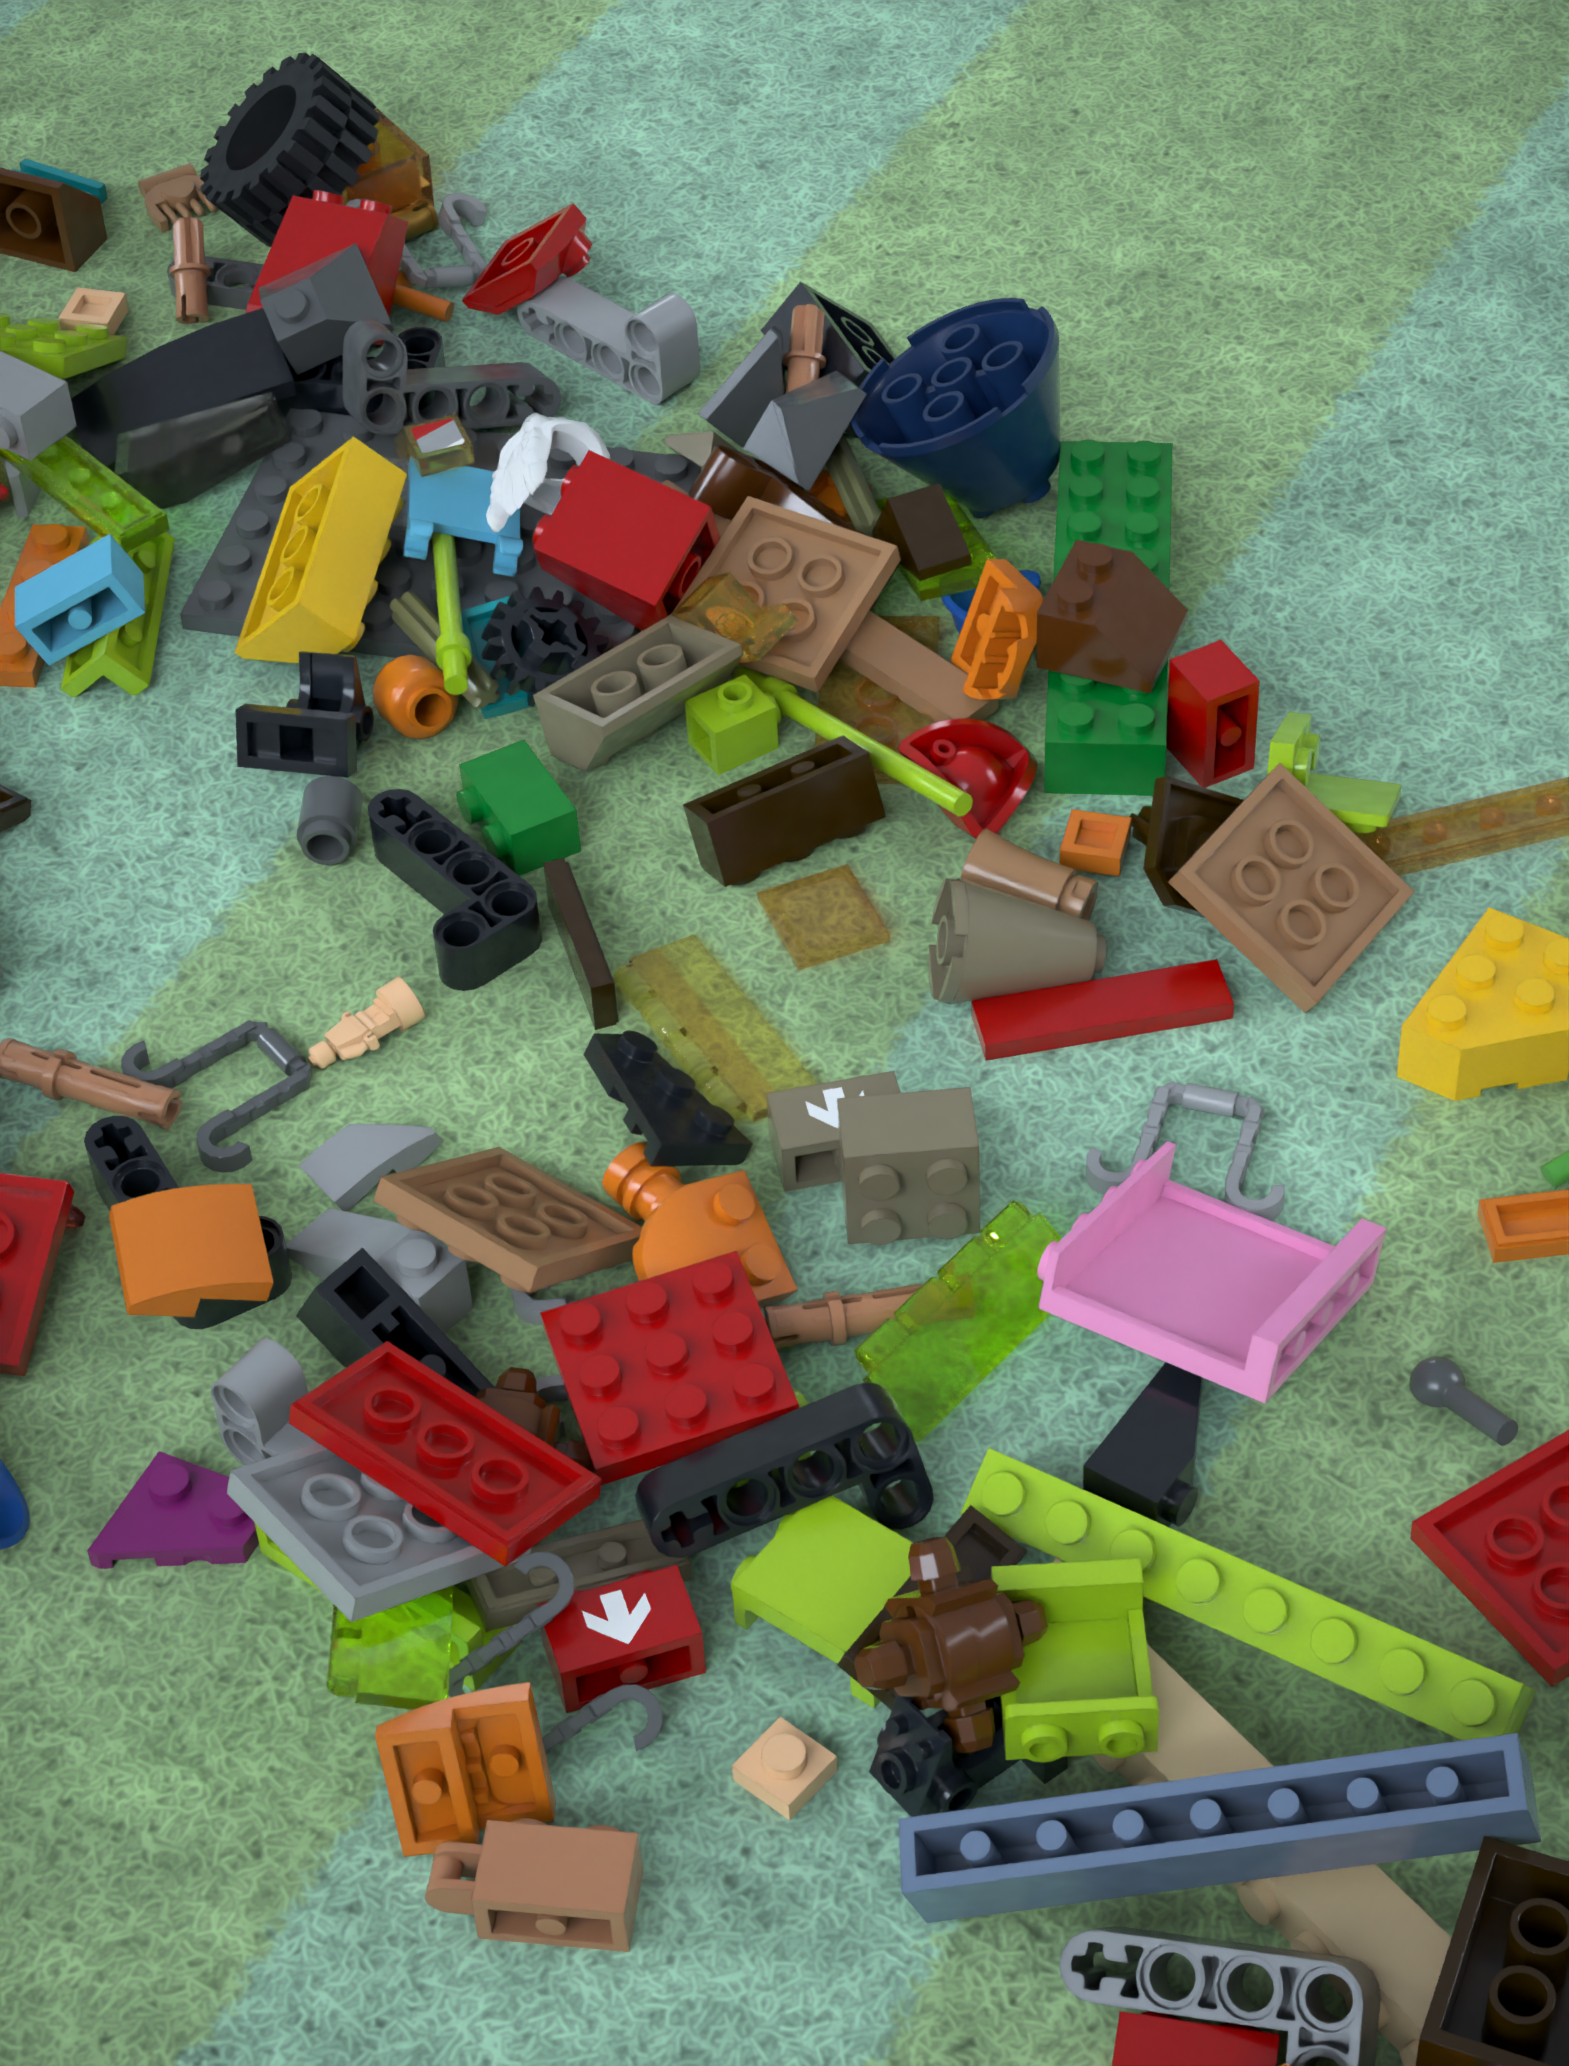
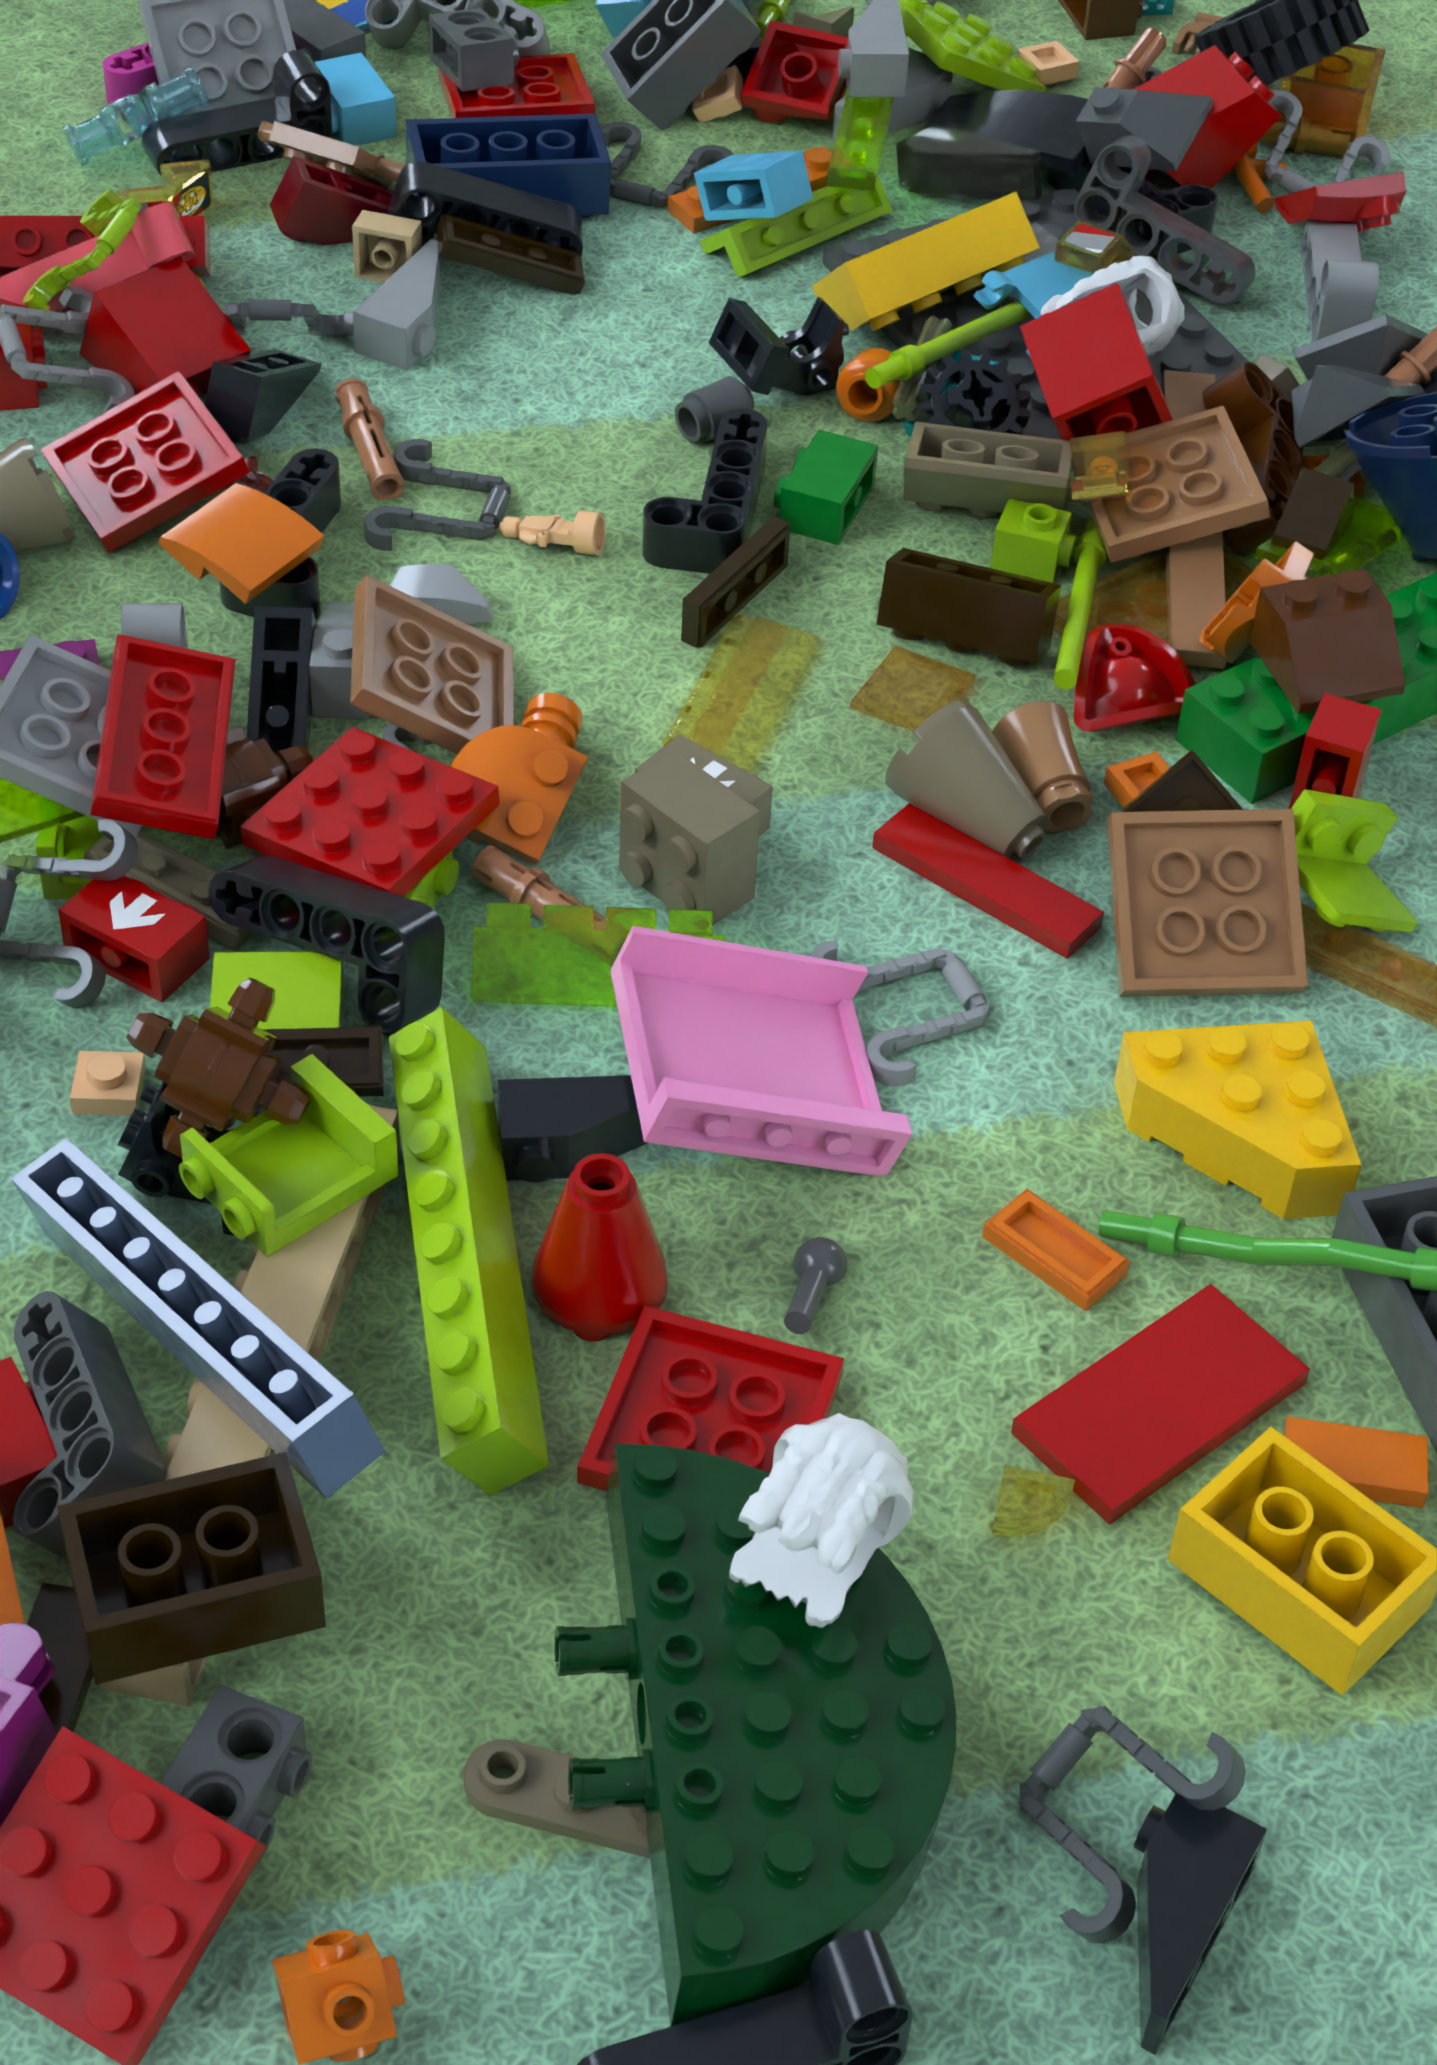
camera: 45 degrees right, 0 degrees up
(664, 1104) = (626, 699): black wing -> none
(1342, 1515) = (599, 1253): none -> red cone

